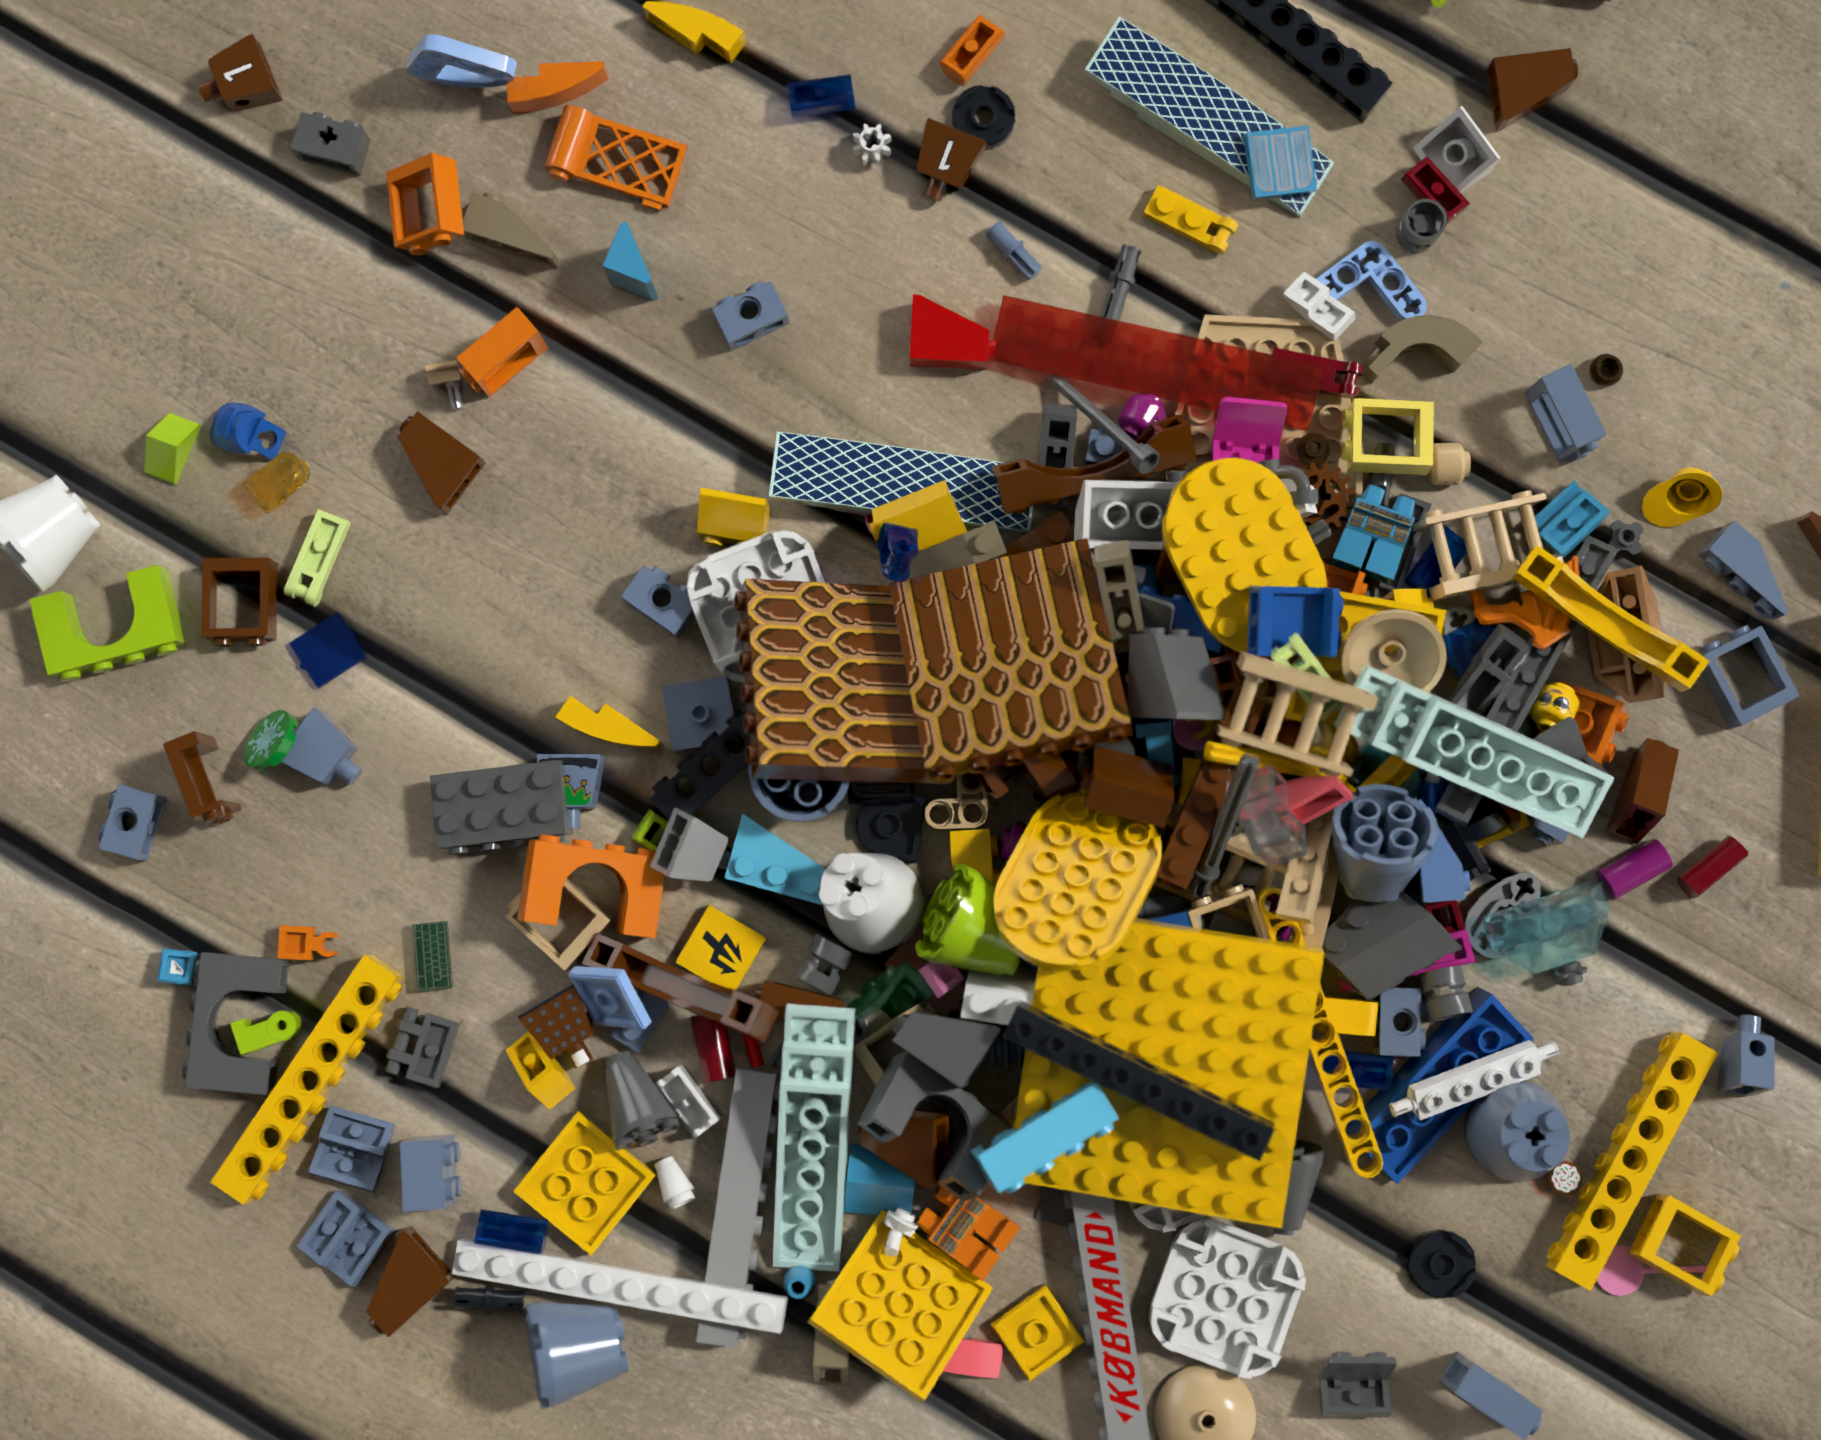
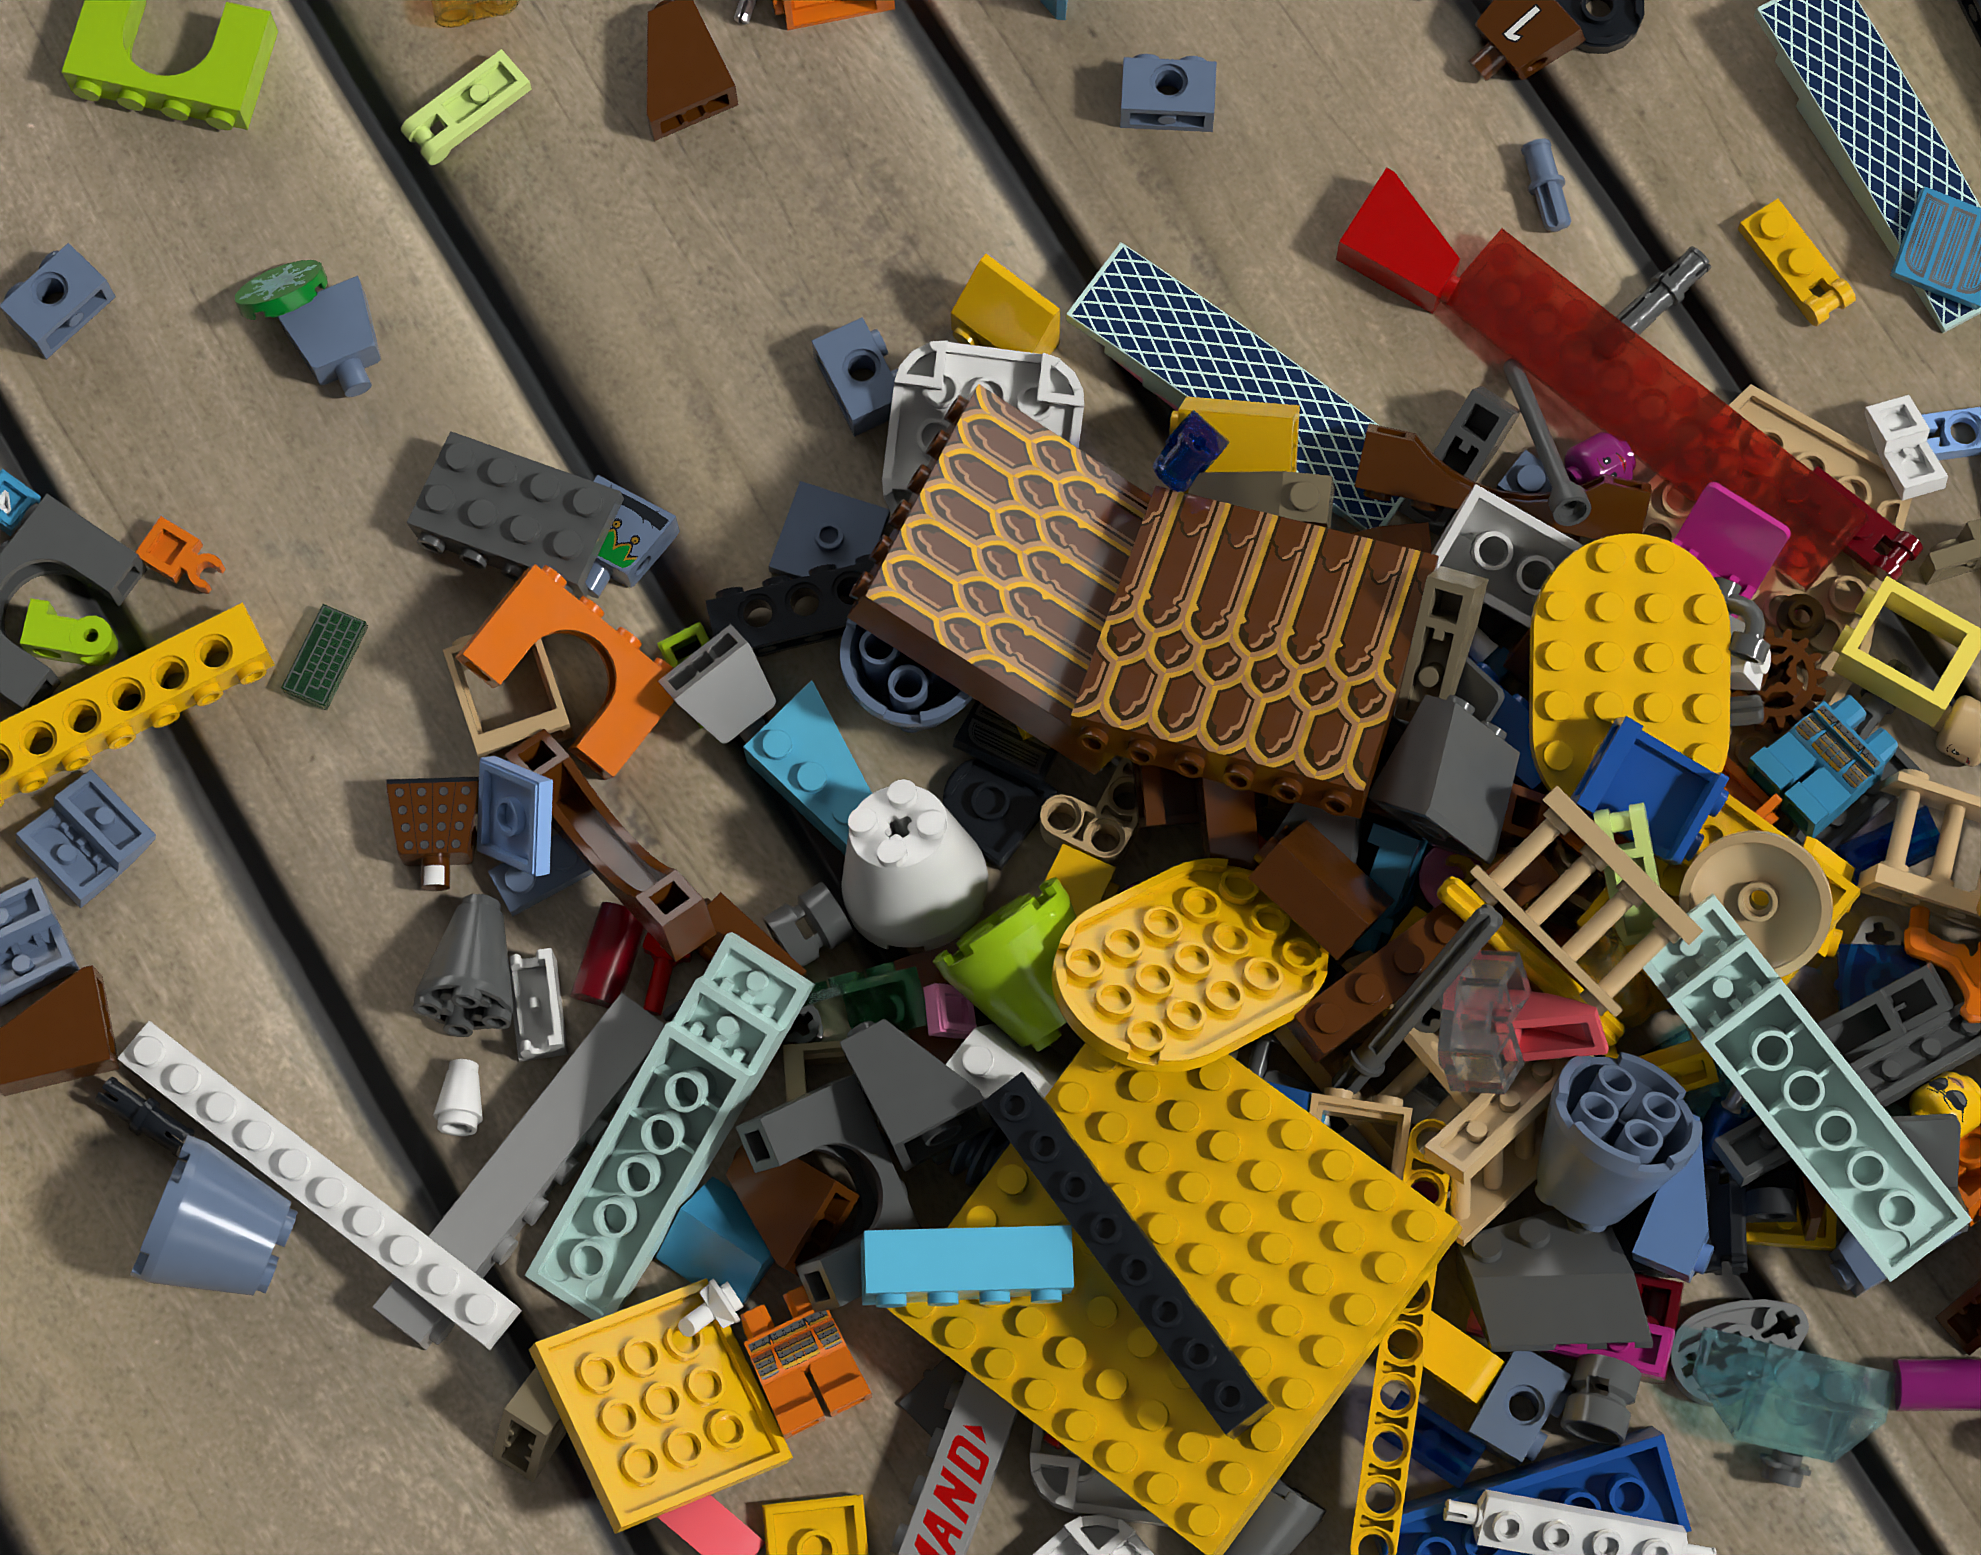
camera: 30 degrees right, 10 degrees down
(186, 762) = (170, 249): reddish brown panel -> none
(258, 566) = (363, 67): reddish brown window -> none
(328, 650) = (414, 225): clear blue piece -> none
(430, 1172) = (165, 910): sand blue brick -> none
(431, 1051) = (256, 768): dark grey plate -> none
(511, 1231) = (223, 1045): clear blue brick -> none
(539, 1072) = (375, 867): yellow slope -> none
(584, 1183) = (349, 1037): yellow plate -> none
(606, 725) = (703, 490): yellow slope -> none
(721, 949) = (693, 836): yellow tile -> none
(801, 1274) = (551, 1323): dark azure cone -> none

